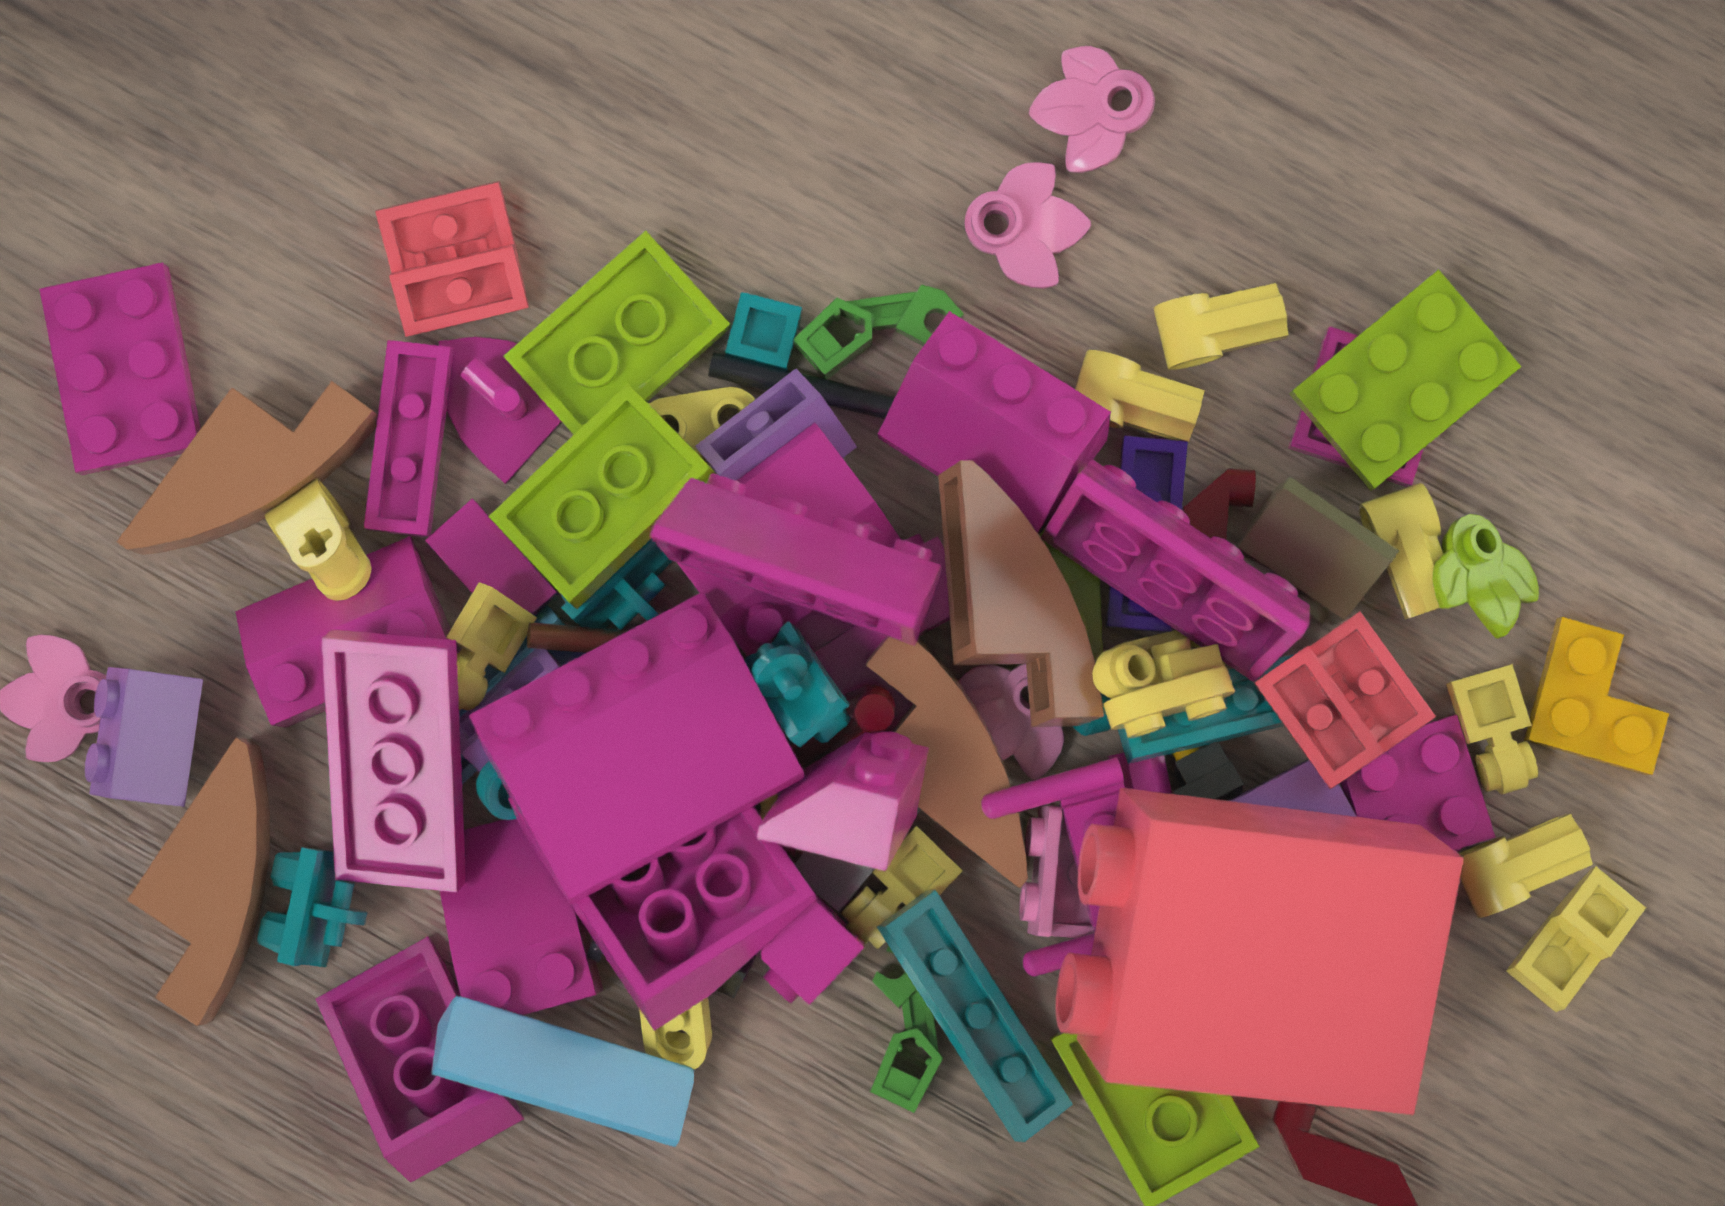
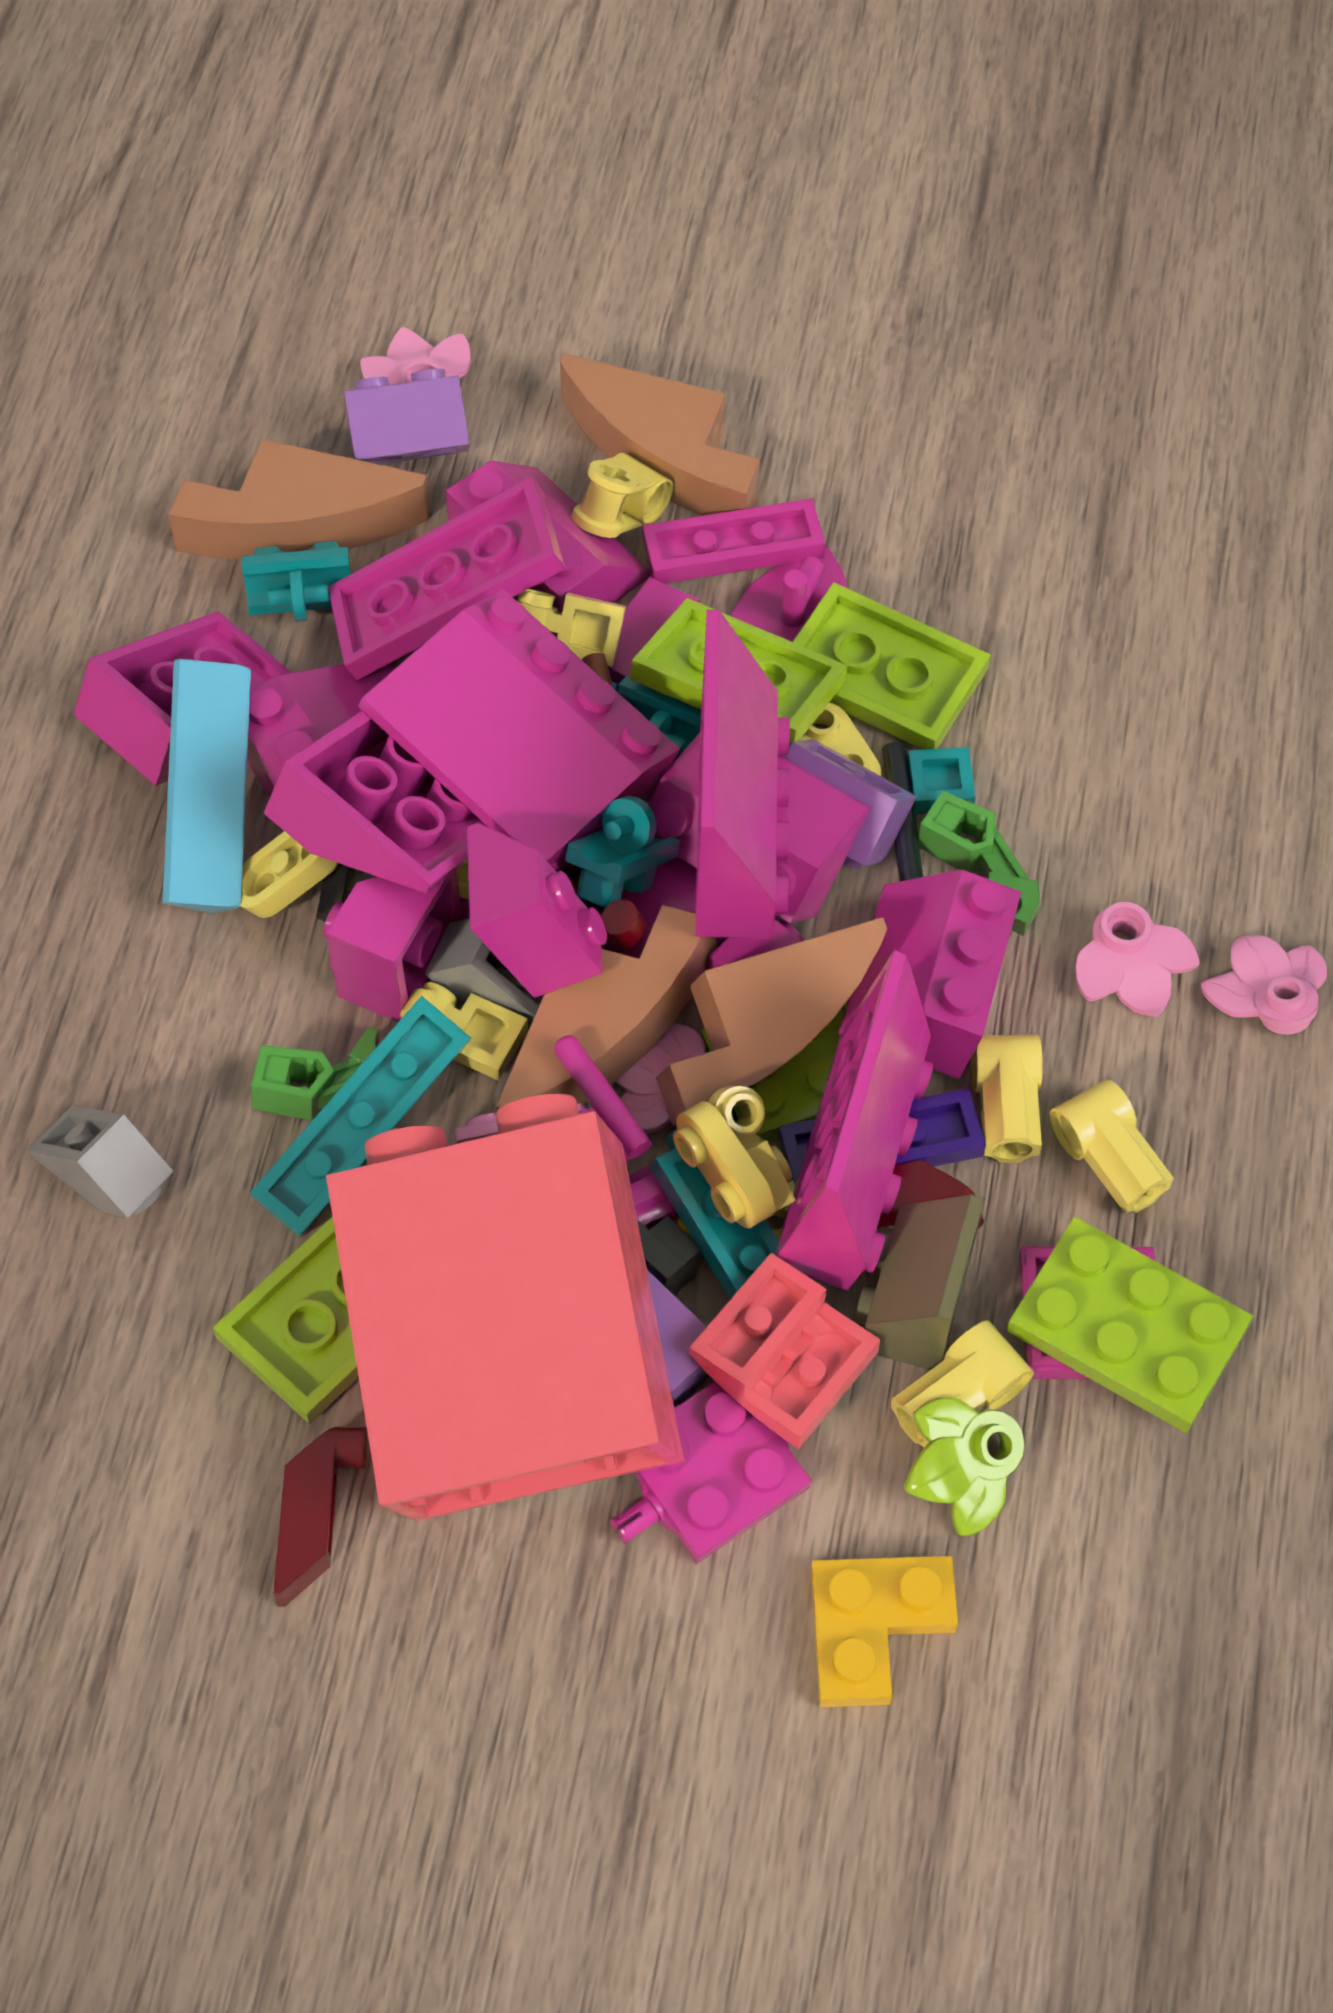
camera: 65 degrees right, 25 degrees down
(121, 368) = (715, 334): dark pink plate -> none
(452, 258) = (904, 534): coral slope -> none
(1490, 709) = (826, 1511): light yellow plate -> none
(1506, 870) = (666, 1574): light yellow piece -> none
(1575, 939) = (619, 1677): light yellow slope -> none

